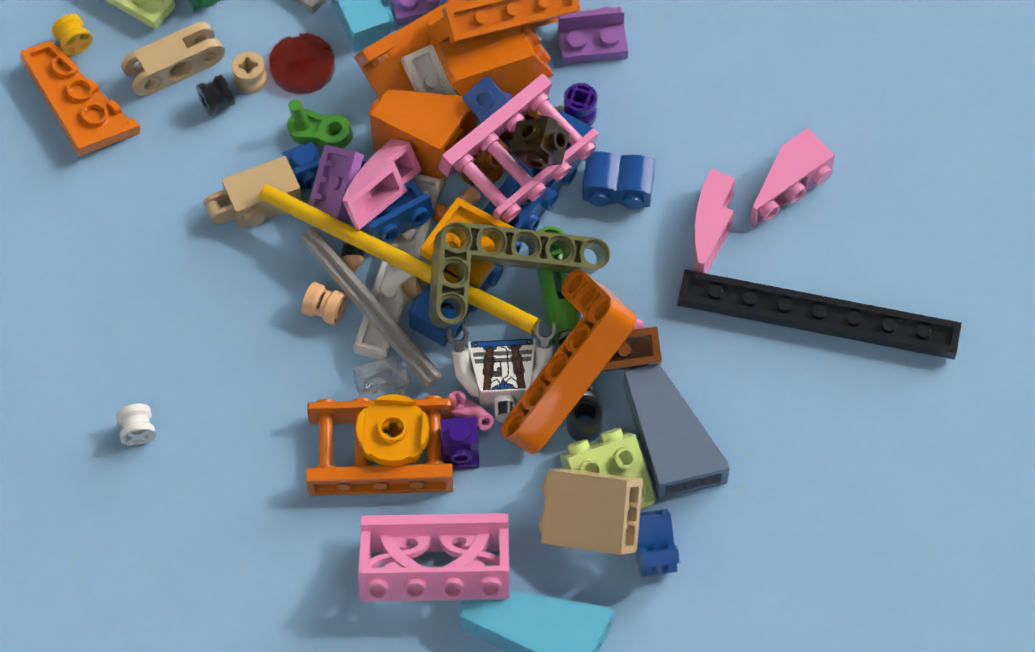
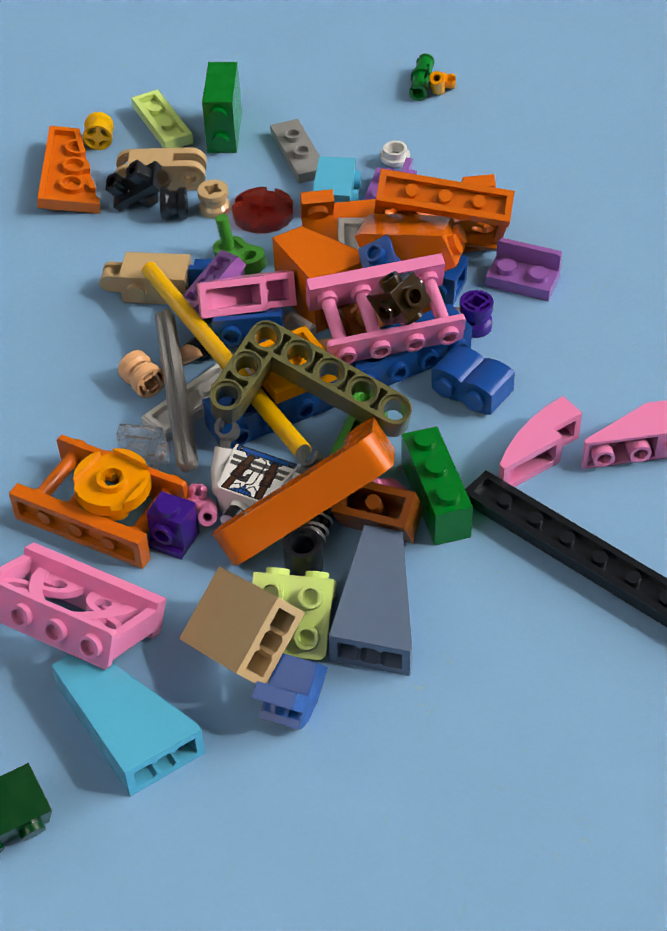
camera: 30 degrees right, 15 degrees down
(168, 93) = (137, 187): none -> black hips
(654, 302) = (437, 485): none -> green brick

